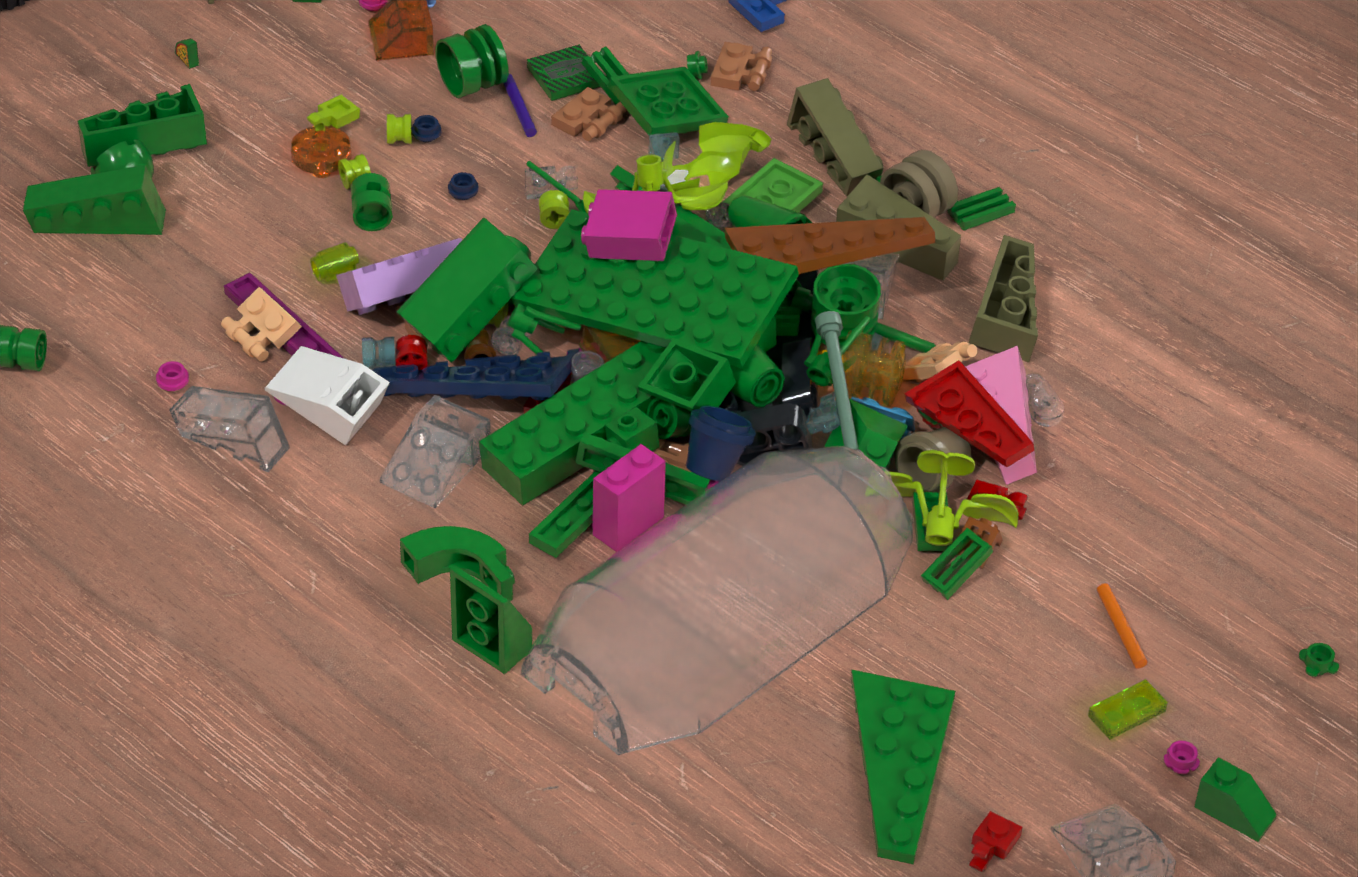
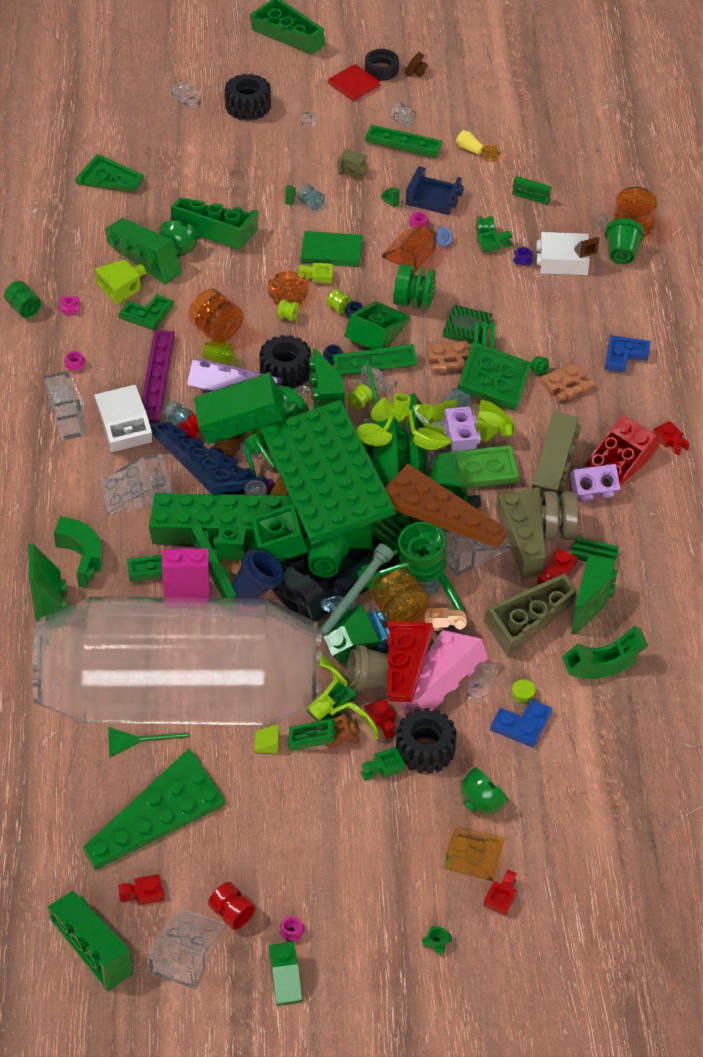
camera: 45 degrees right, 5 degrees up
(80, 322) = (69, 305): none -> dark pink plate
(108, 258) = (119, 279): none -> lime torso
(191, 277) = (149, 316): none -> green tile
(218, 40) = (309, 195): none -> clear light blue wheel
(266, 316) = (147, 359): light nougat plate -> none
(289, 221) = (215, 315): none -> clear orange wheel
(311, 82) = (331, 248): none -> green tile
(371, 202) = (274, 326): green wheel -> none
(426, 217) = (286, 359): none -> black tyre
(476, 130) = (375, 325): none -> green slope
(510, 170) = (381, 359): none -> green plate
(515, 211) = (326, 381): none -> green slope
(520, 107) = (421, 326): dark purple bar -> none
(629, 225) = (342, 426): dark pink brick -> none
(709, 166) = (460, 427): none -> lavender brick
(767, 720) = (121, 740): none -> green piece
(886, 93) = (626, 446): none -> red slope
(903, 137) = (593, 478): none -> lavender brick
(906, 56) = (670, 435): none -> red plate
(917, 603) = (267, 740): none -> lime slope
(973, 252) = (560, 563): none -> red plate
(1039, 220) = (594, 590): none -> green slope
(1058, 538) = (385, 762): none -> green plate
(1073, 487) = (430, 725): none -> black tyre
(1089, 380) = (523, 691): none -> lime tile
(1105, 779) = (233, 907): none -> red wheel
(1122, 626) = (358, 835): orange bar -> none
(1127, 709) = (297, 880): clear neon green plate -> none
(1132, 413) = (522, 728): none -> blue plate
(1134, 288) = (606, 660): none -> green arch
(1188, 493) = (481, 793): none -> green cylinder
(1243, 560) = (474, 853): none -> clear yellow slope
(1320, 575) = (501, 895): none -> red plate

